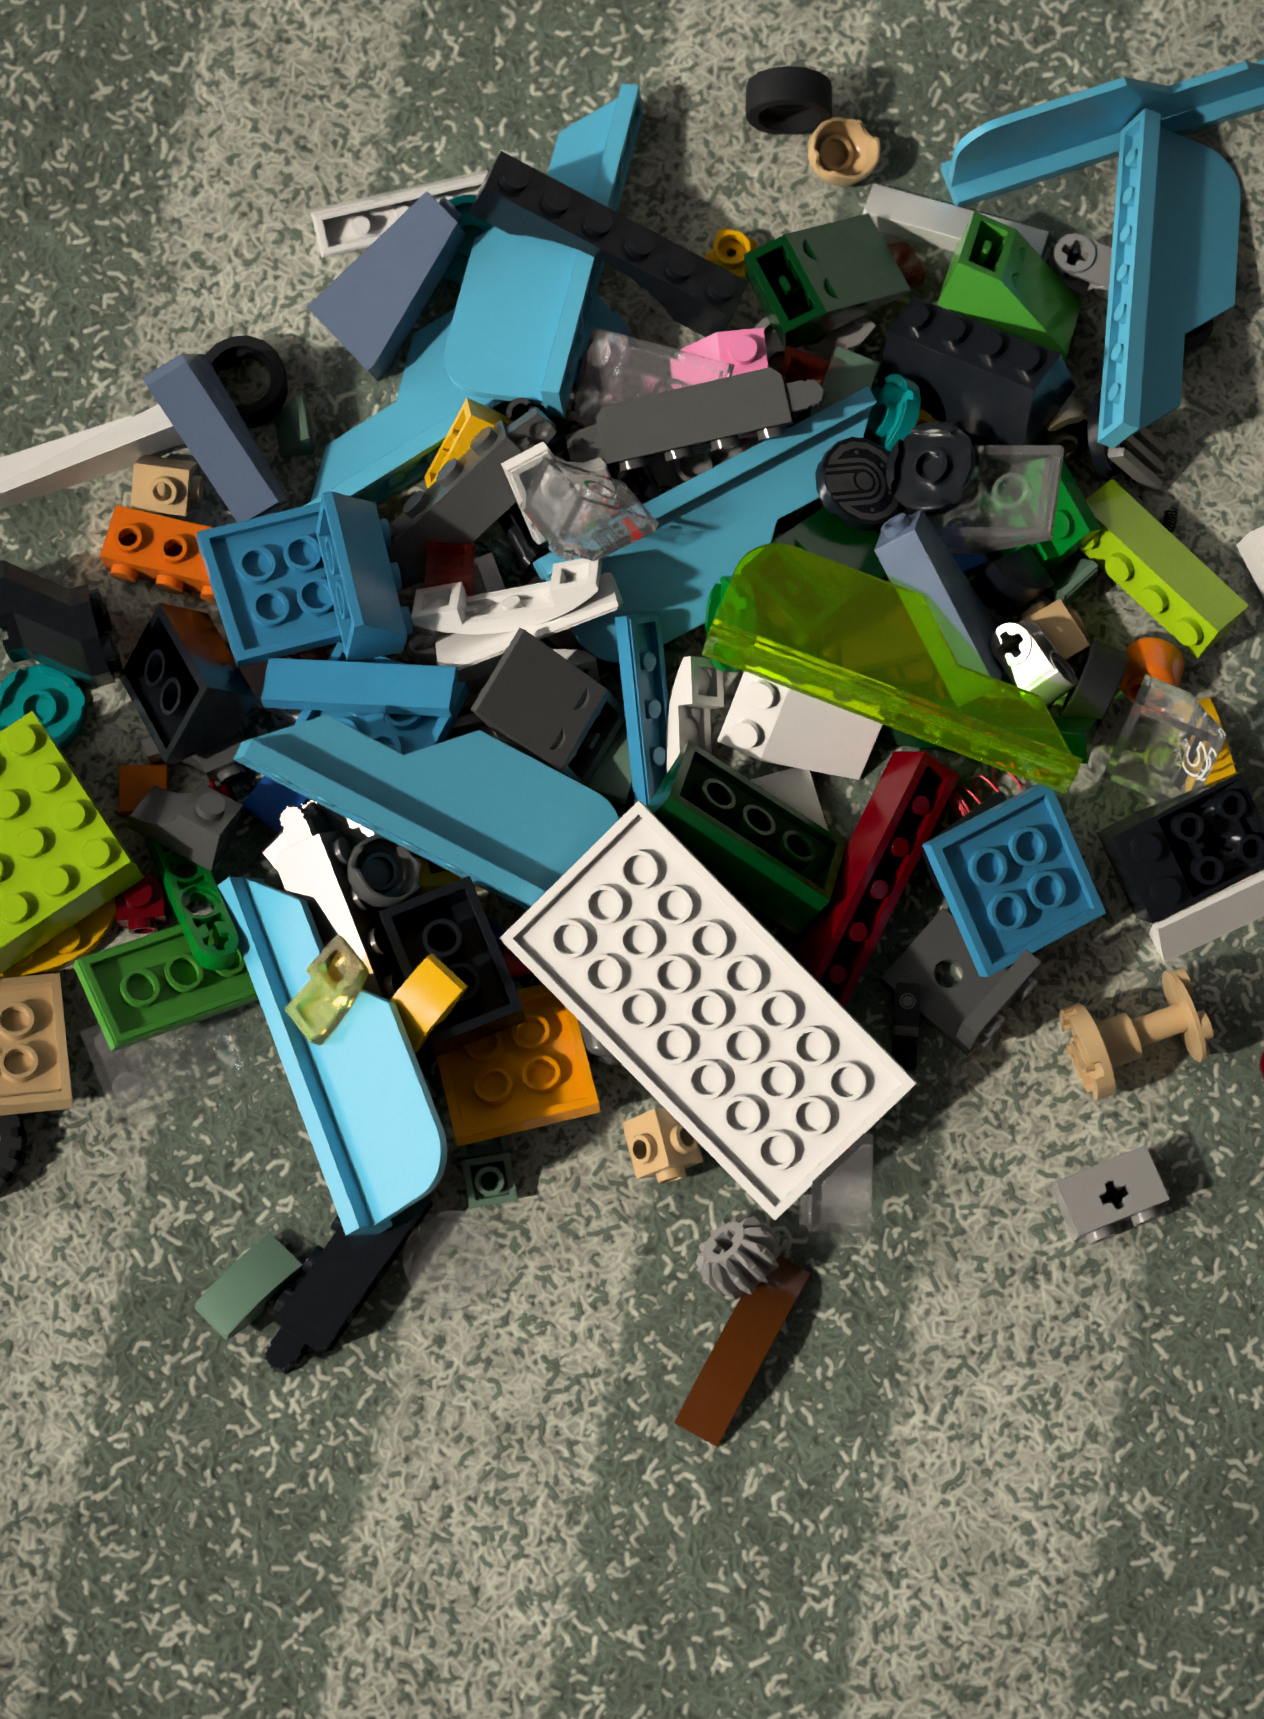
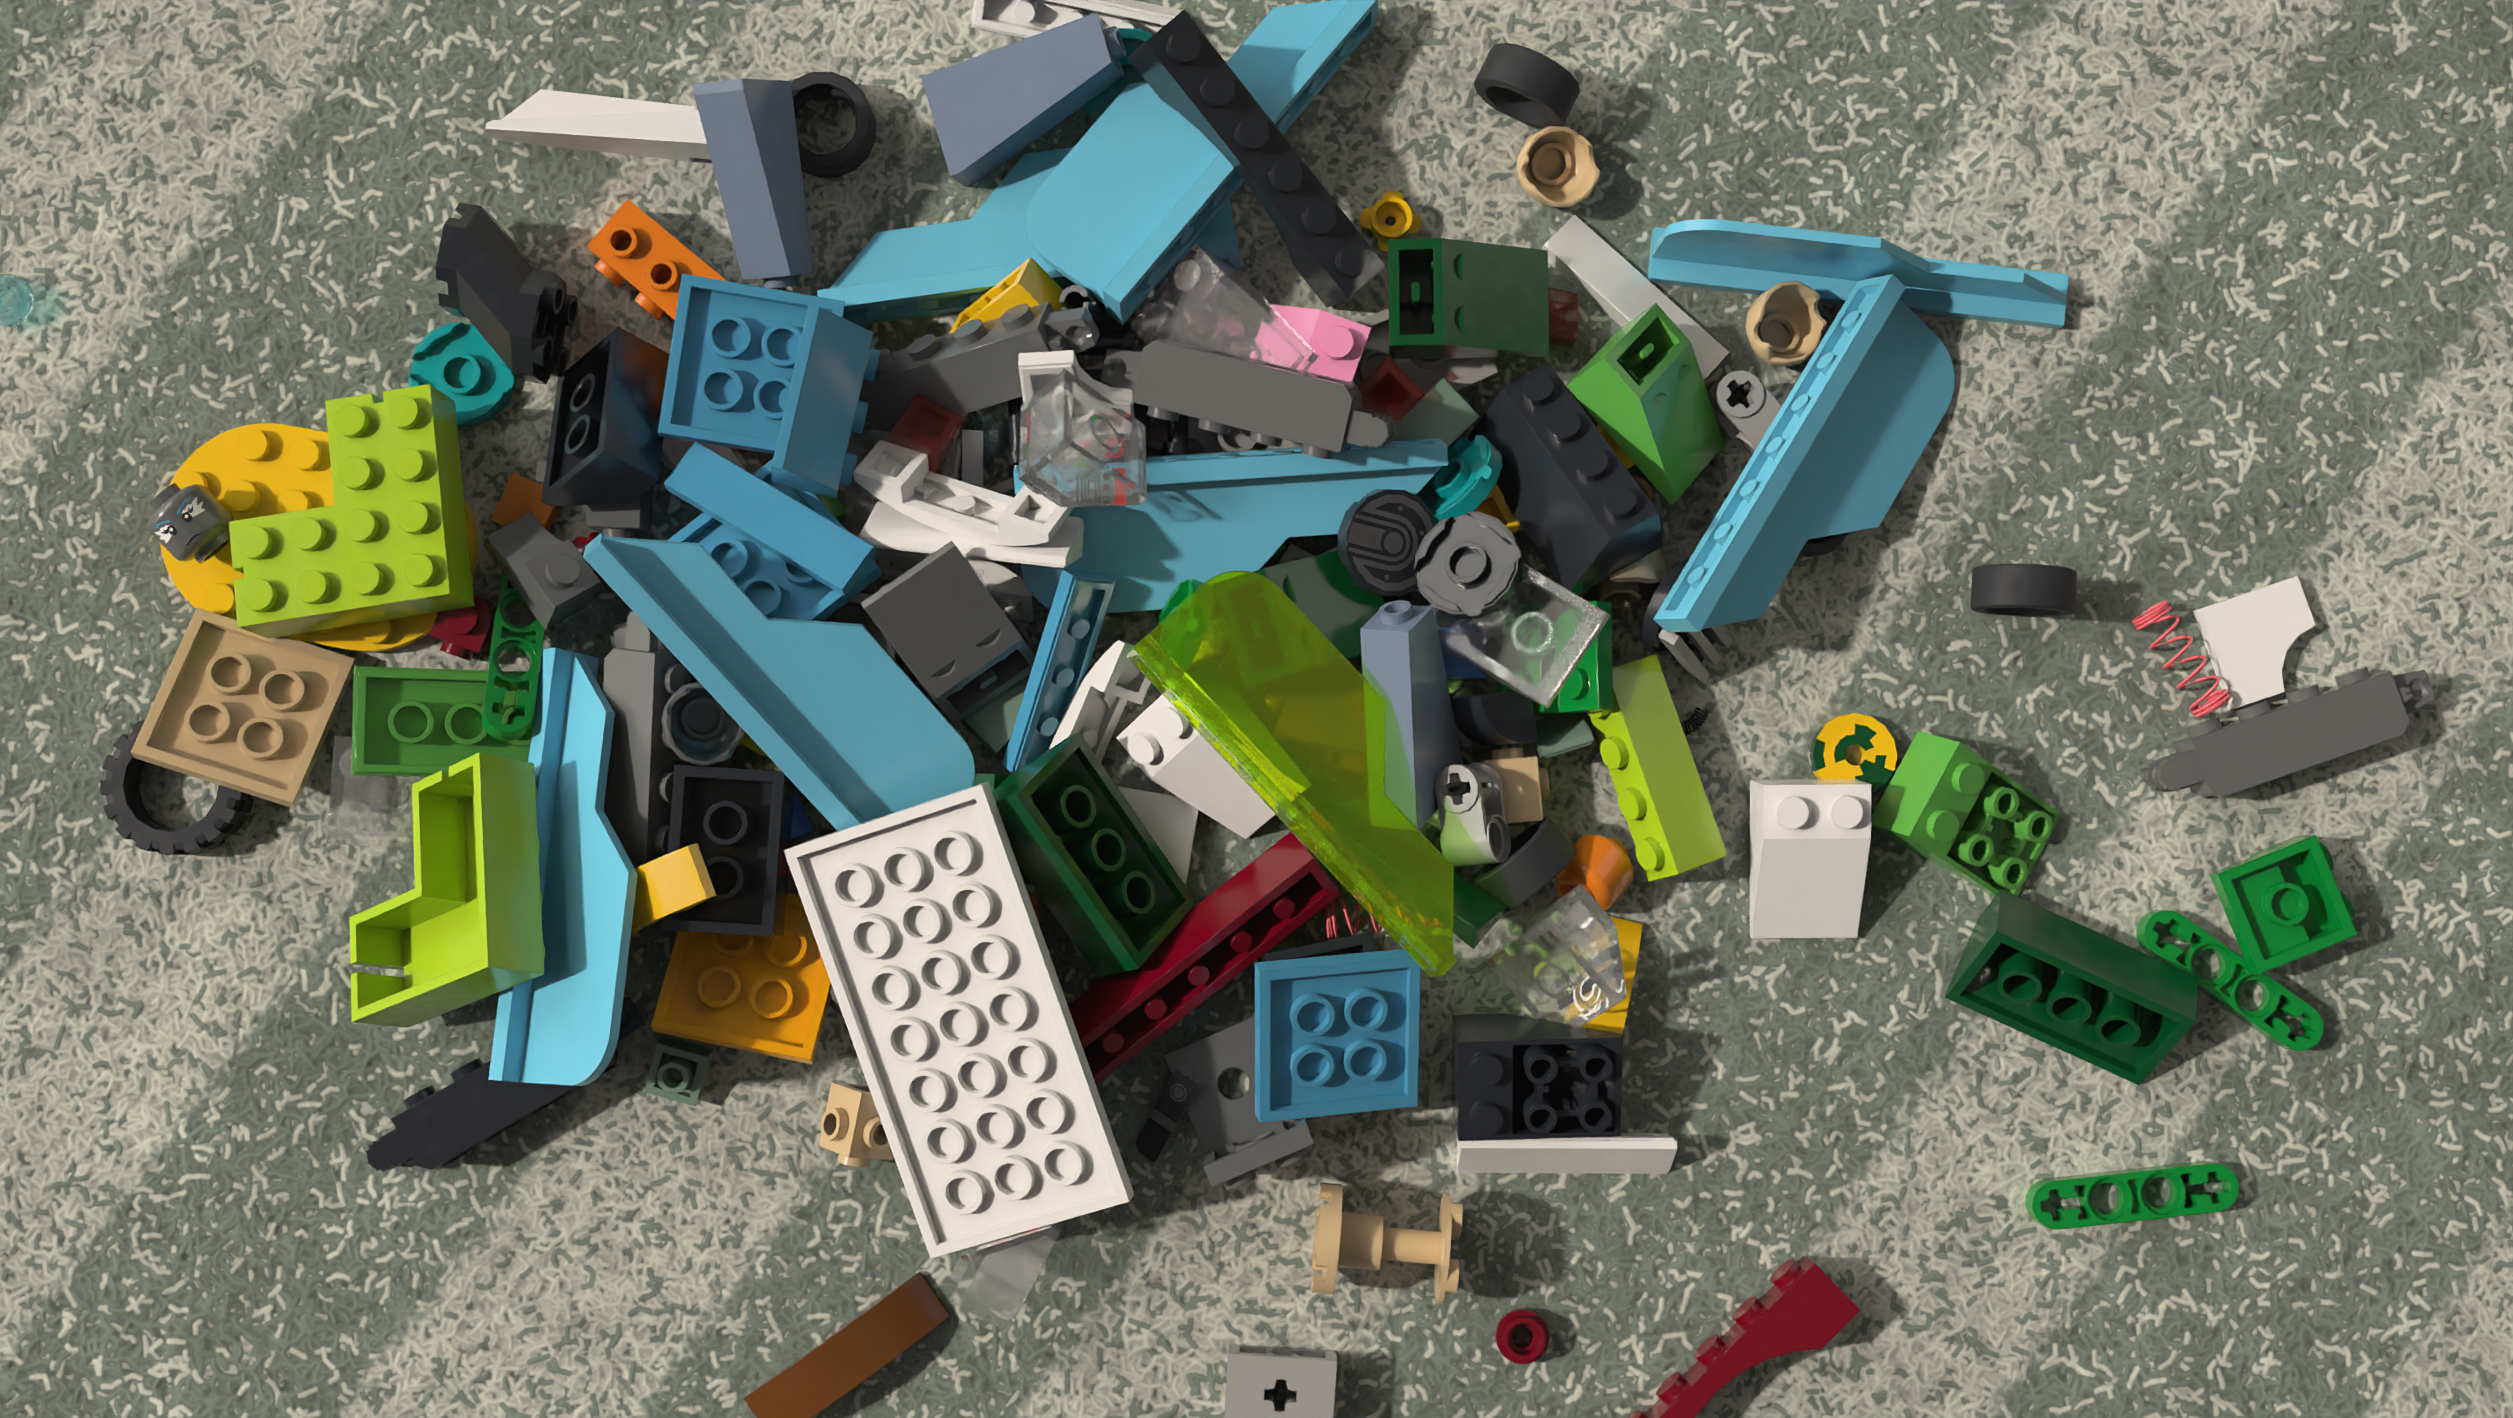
camera: 20 degrees right, 10 degrees up
(166, 485) = (687, 200): tan brick -> none
(247, 1285) = (390, 1065): sand green slope -> none
(269, 1114) = (474, 902): none -> lime piece
(294, 429) = (855, 201): sand green slope -> none
(329, 995) = (582, 827): clear yellow slope -> none
(469, 1283) = (572, 1139): clear plate -> none
(738, 1256) = (879, 1273): light grey gear -> none
(1081, 173) = (1797, 309): none -> tan hair

